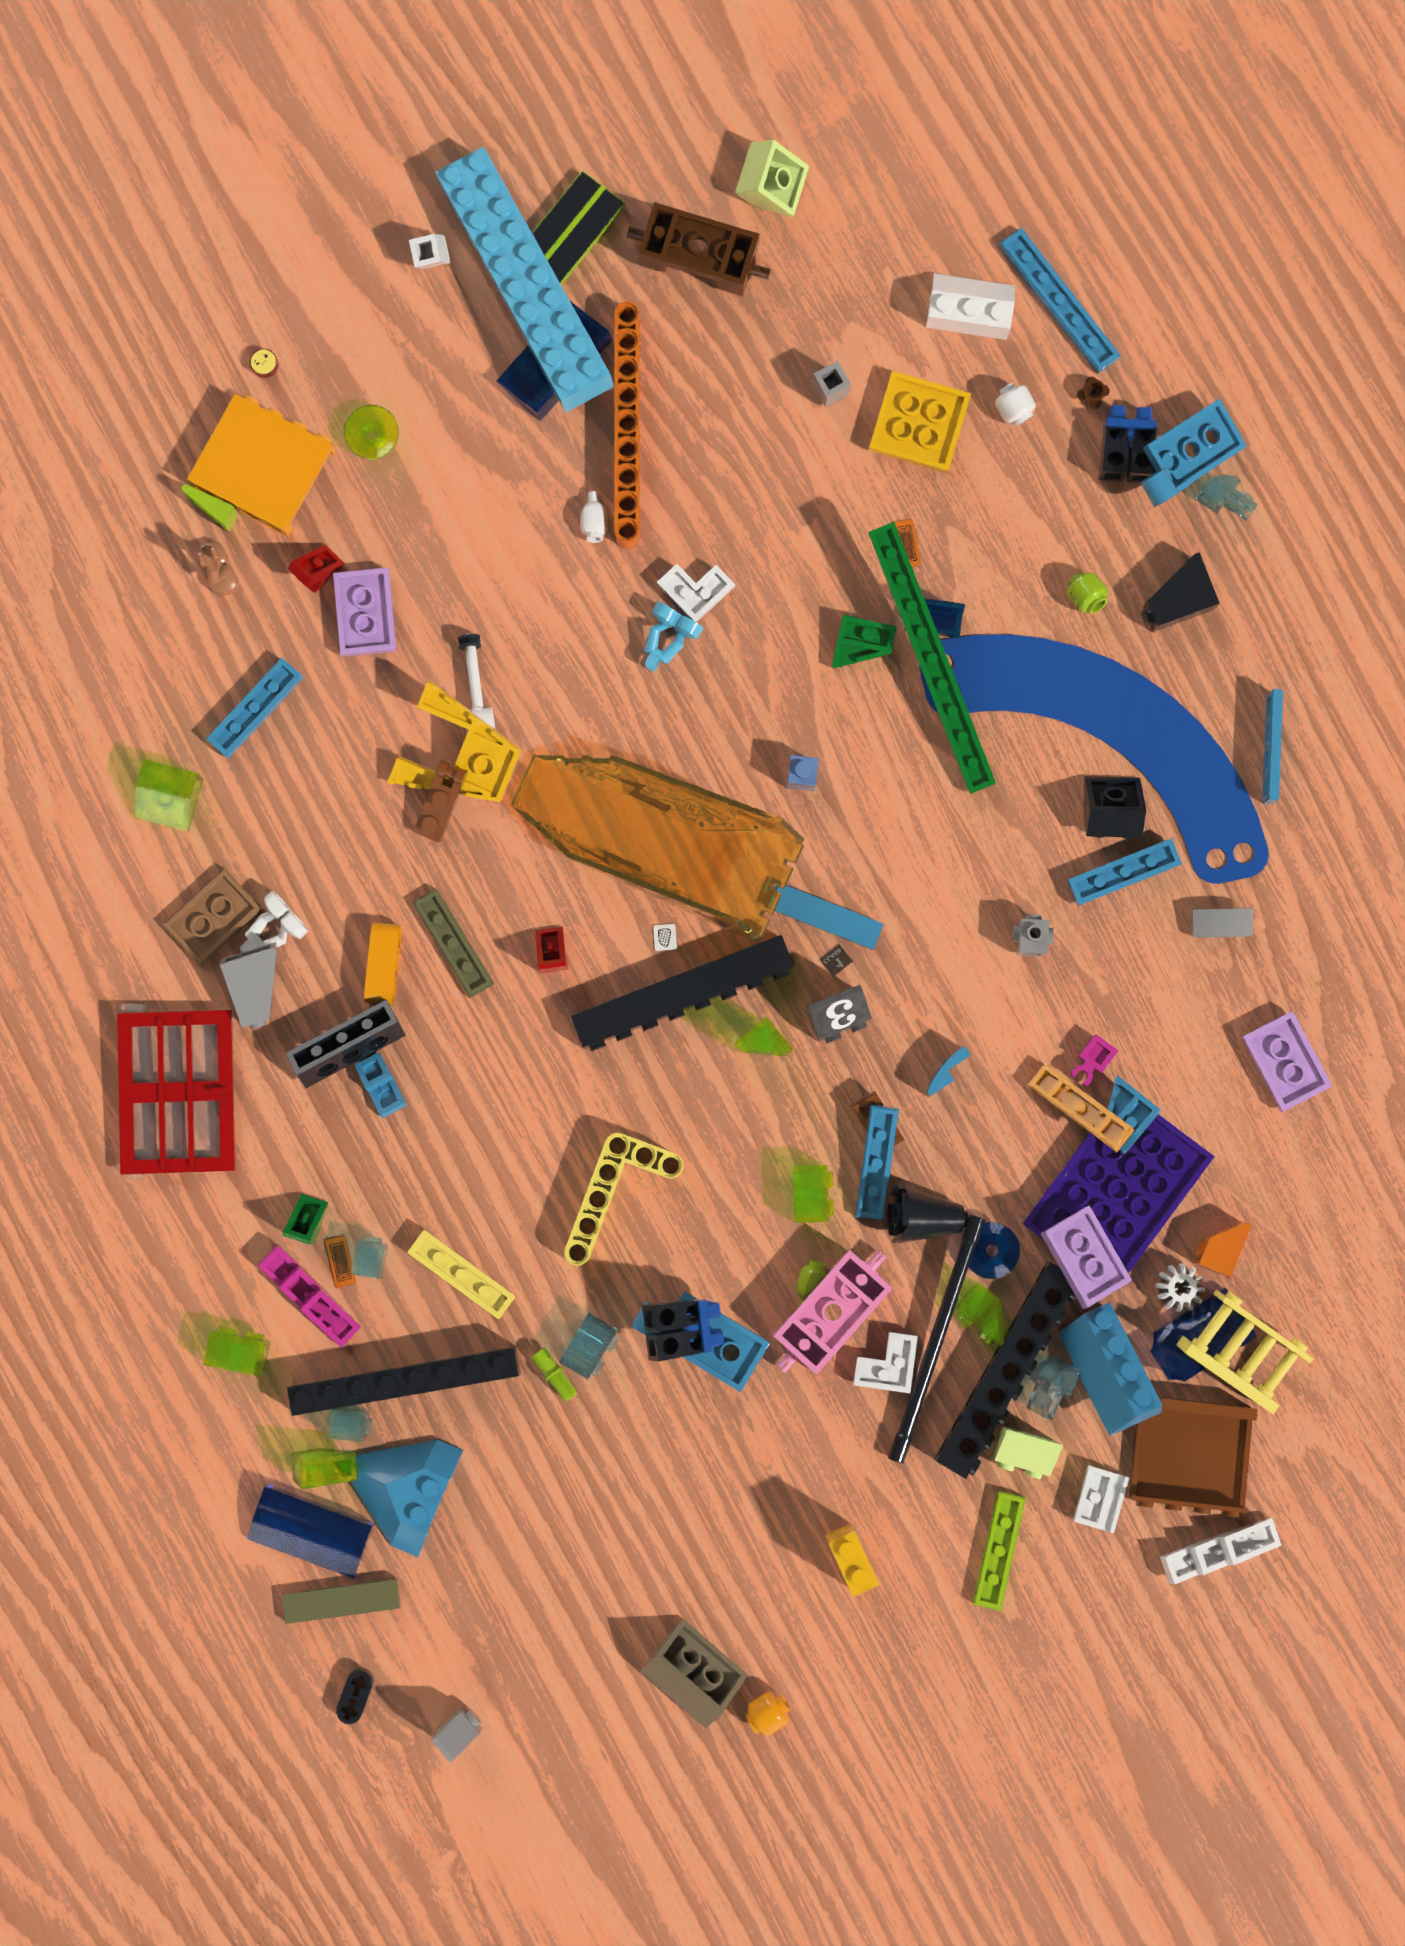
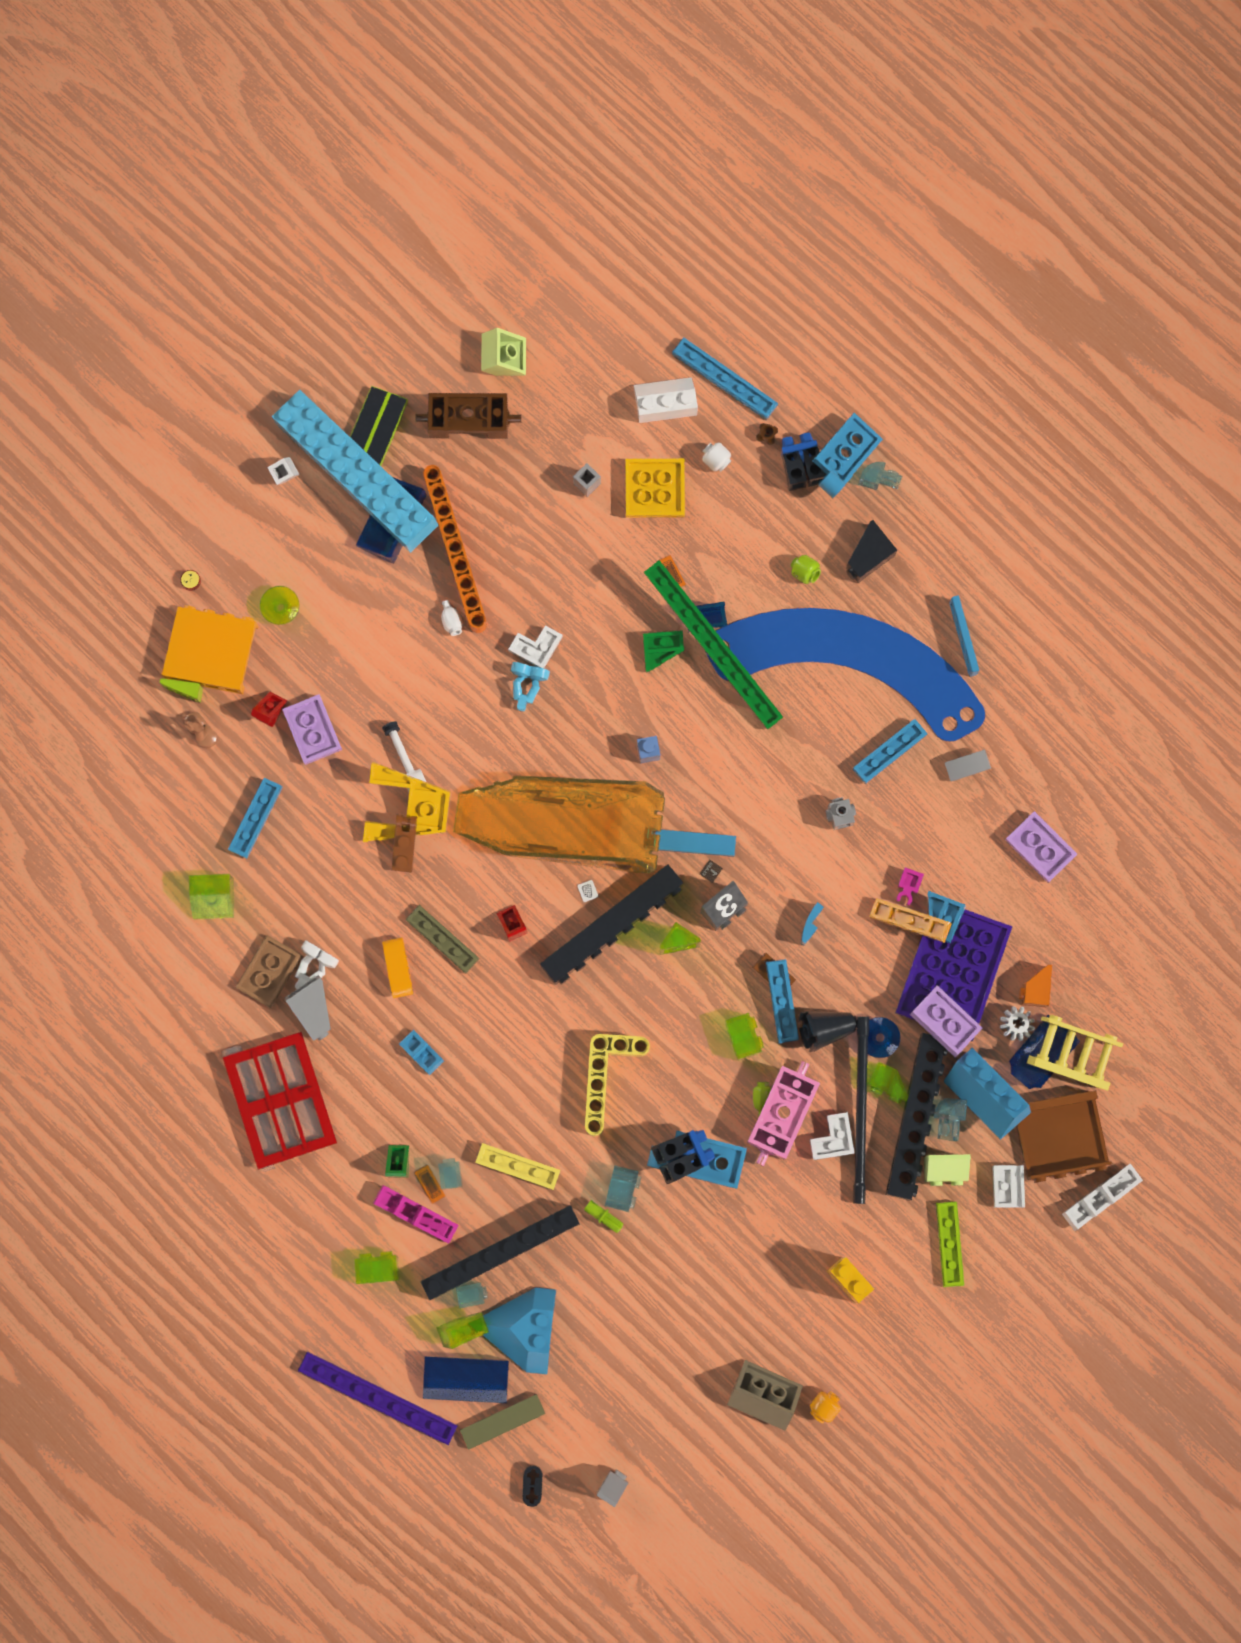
camera: 15 degrees left, 5 degrees down
(188, 1520) = (378, 1398): none -> dark purple tile
(345, 1044) = (389, 1030): black brick -> none
(1114, 807) = (869, 709): black slope -> none

